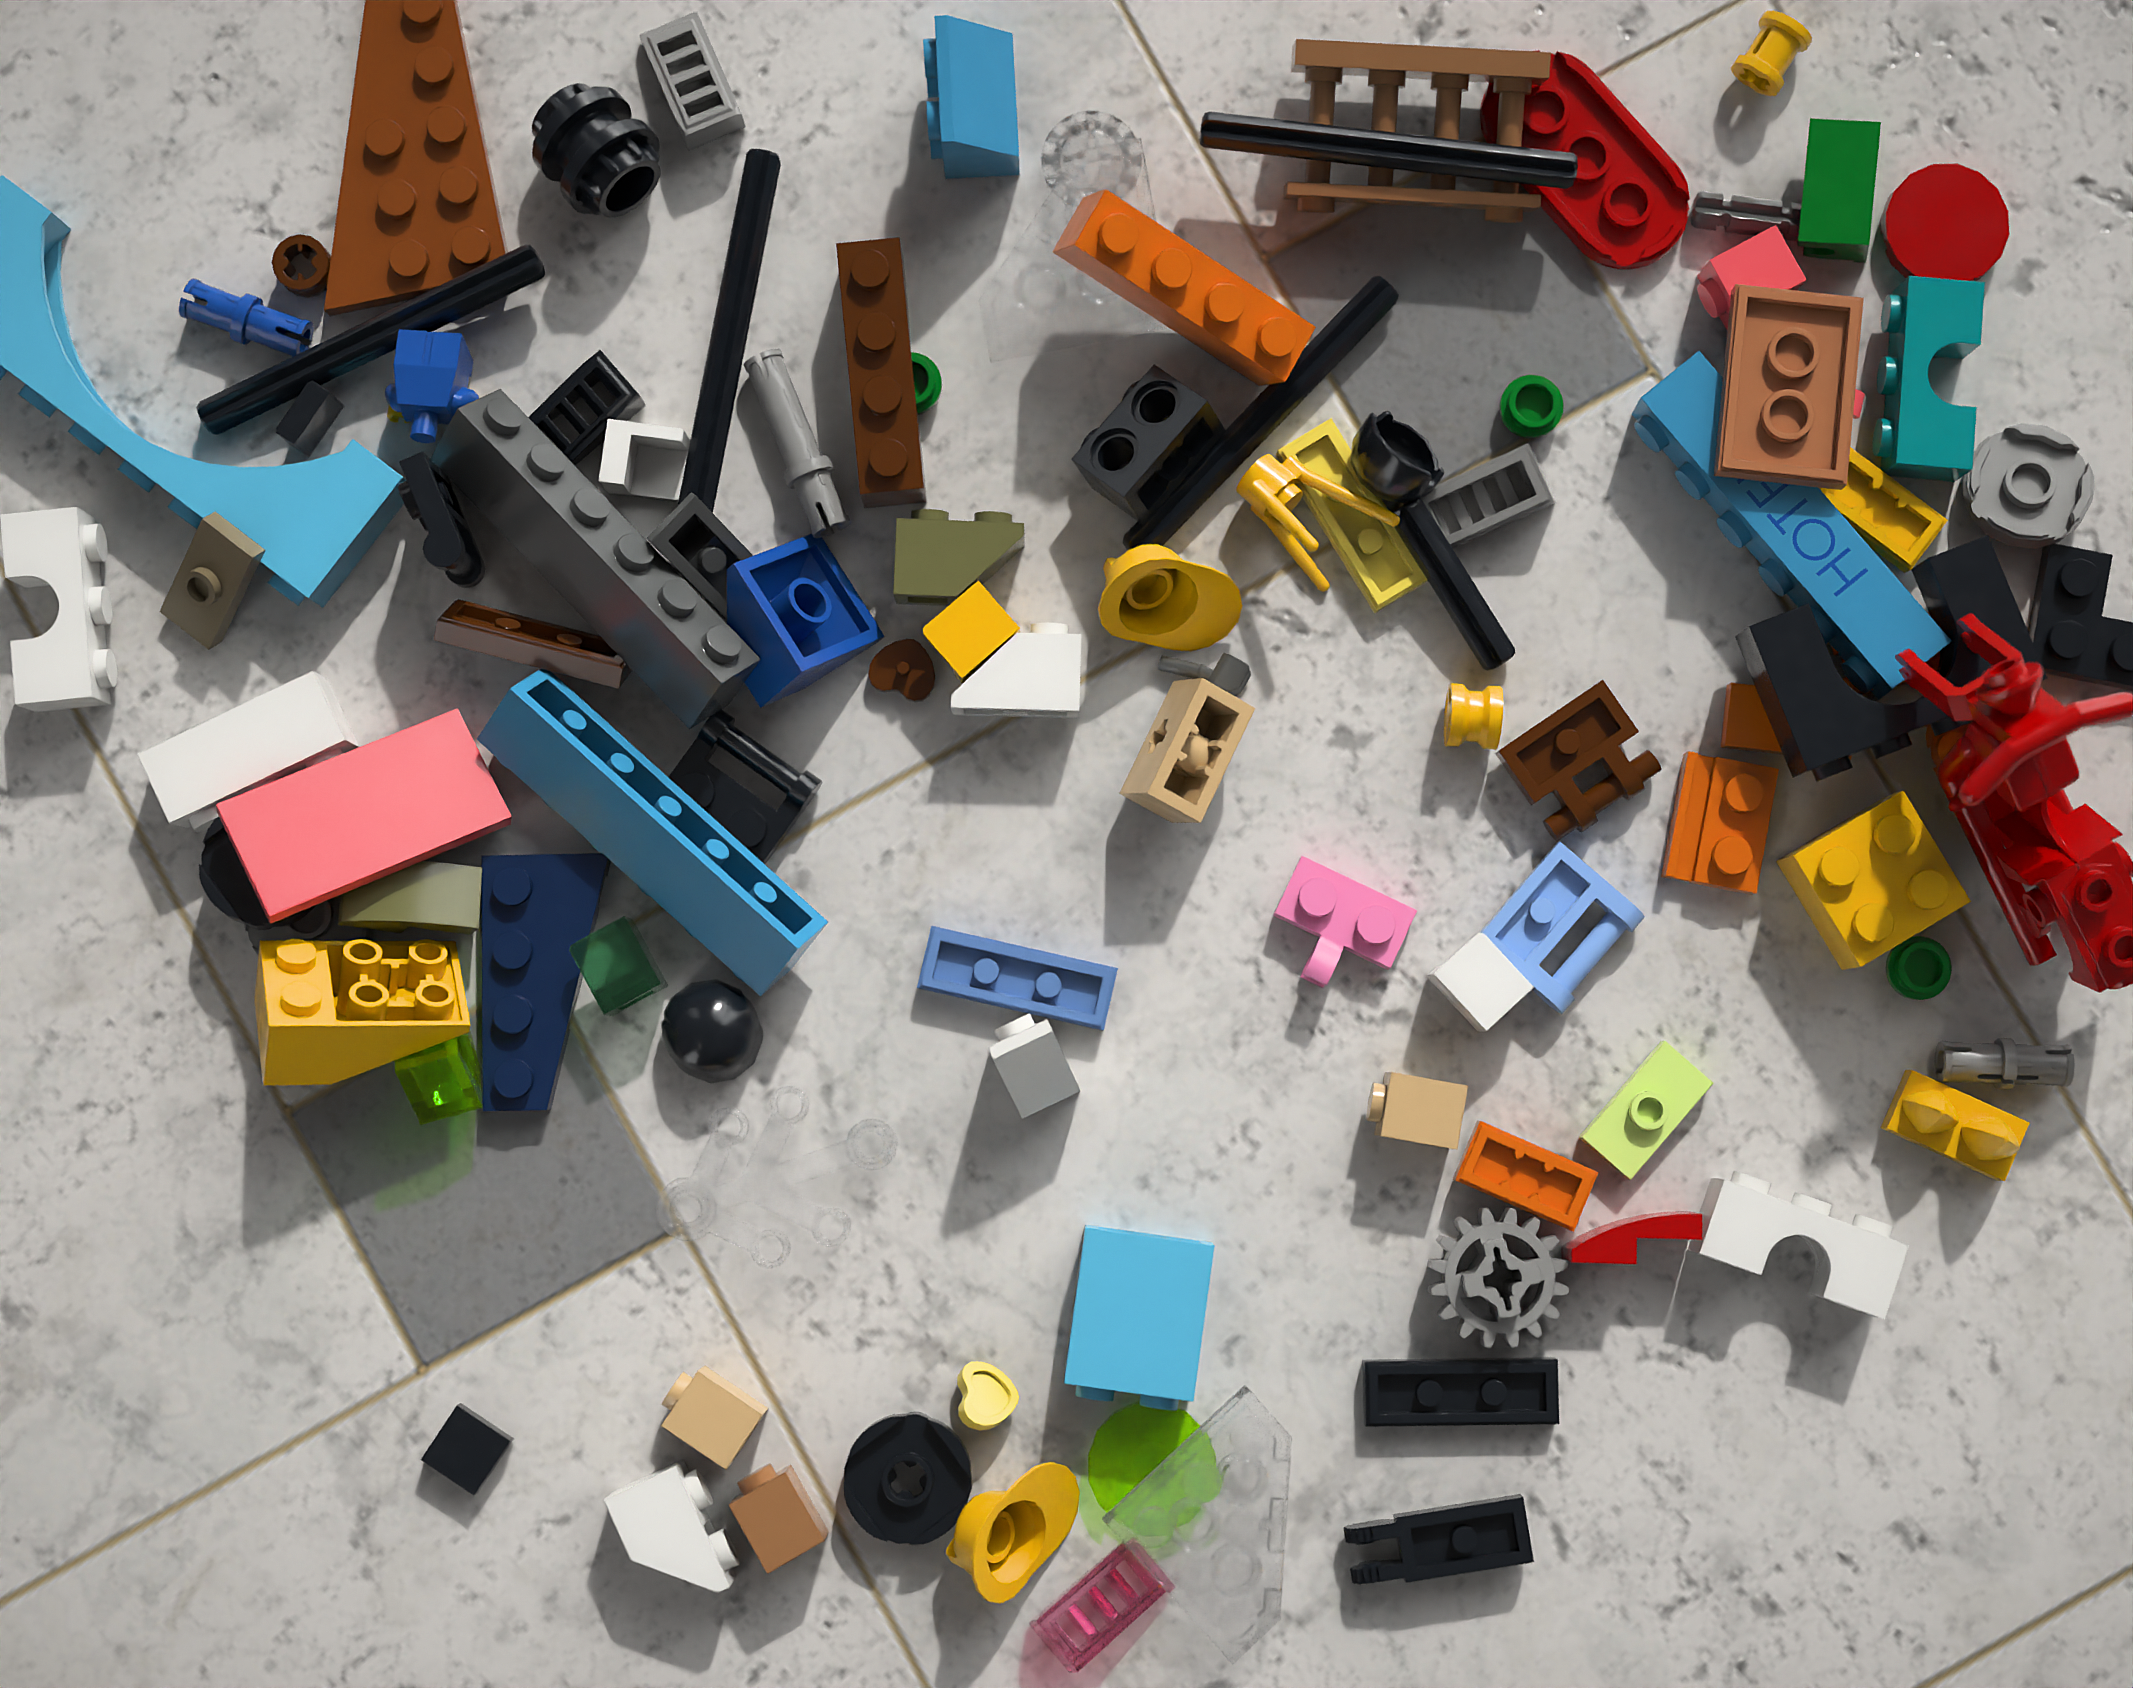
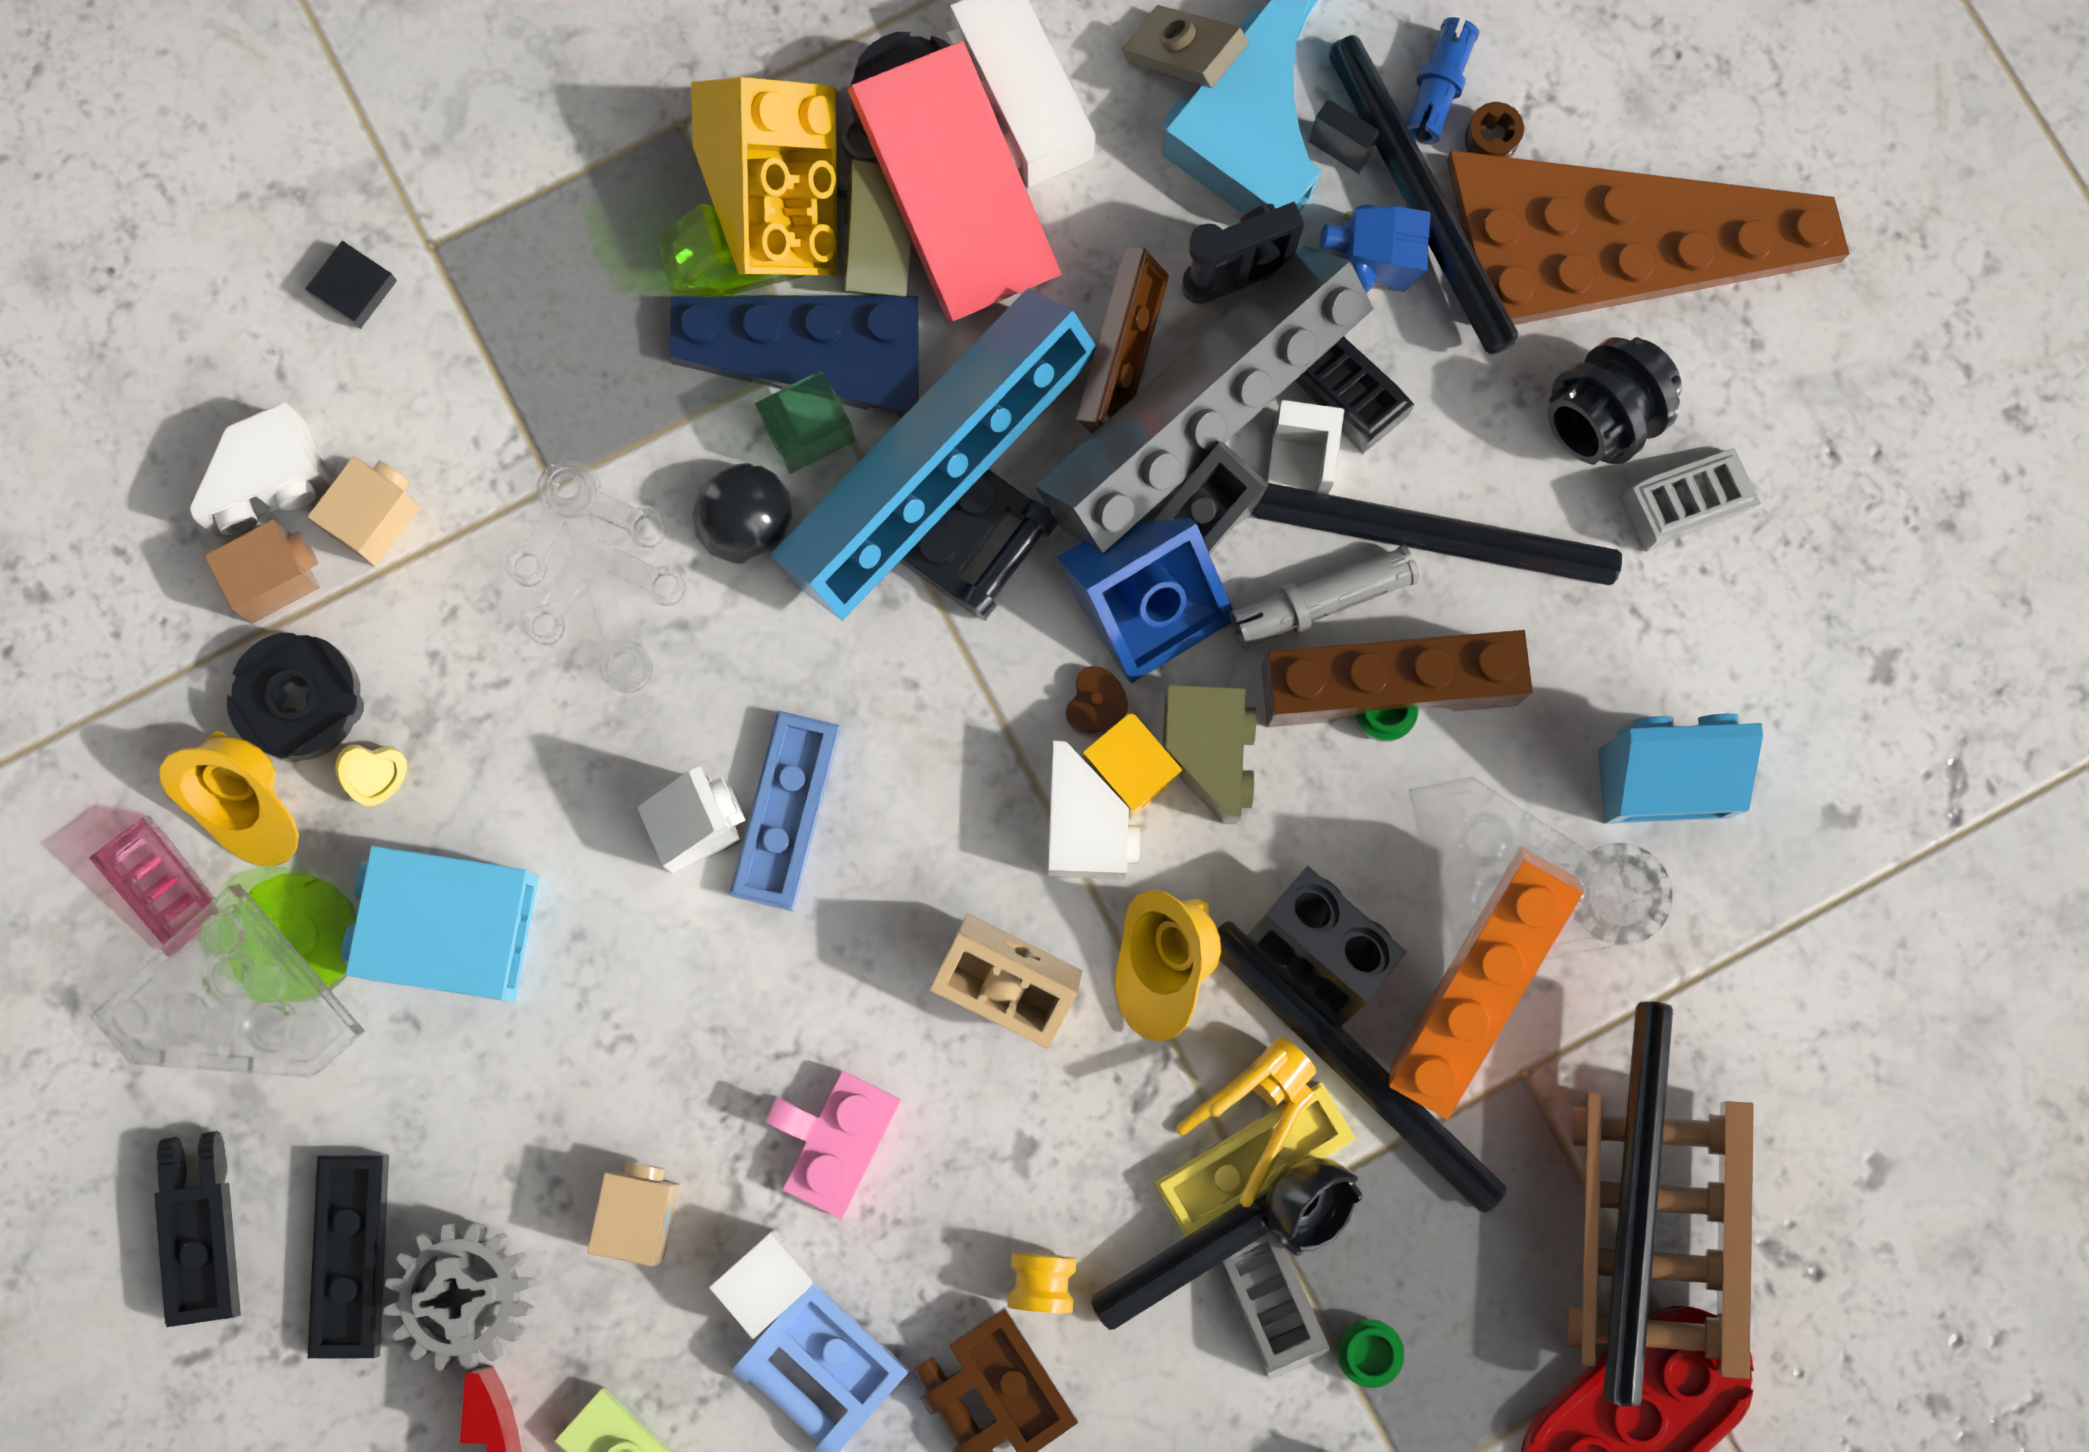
camera: 90 degrees right, 5 degrees down
(1229, 673) = (1086, 1026): dark grey hand -> none
(1525, 1175) = (563, 1328): orange plate -> none

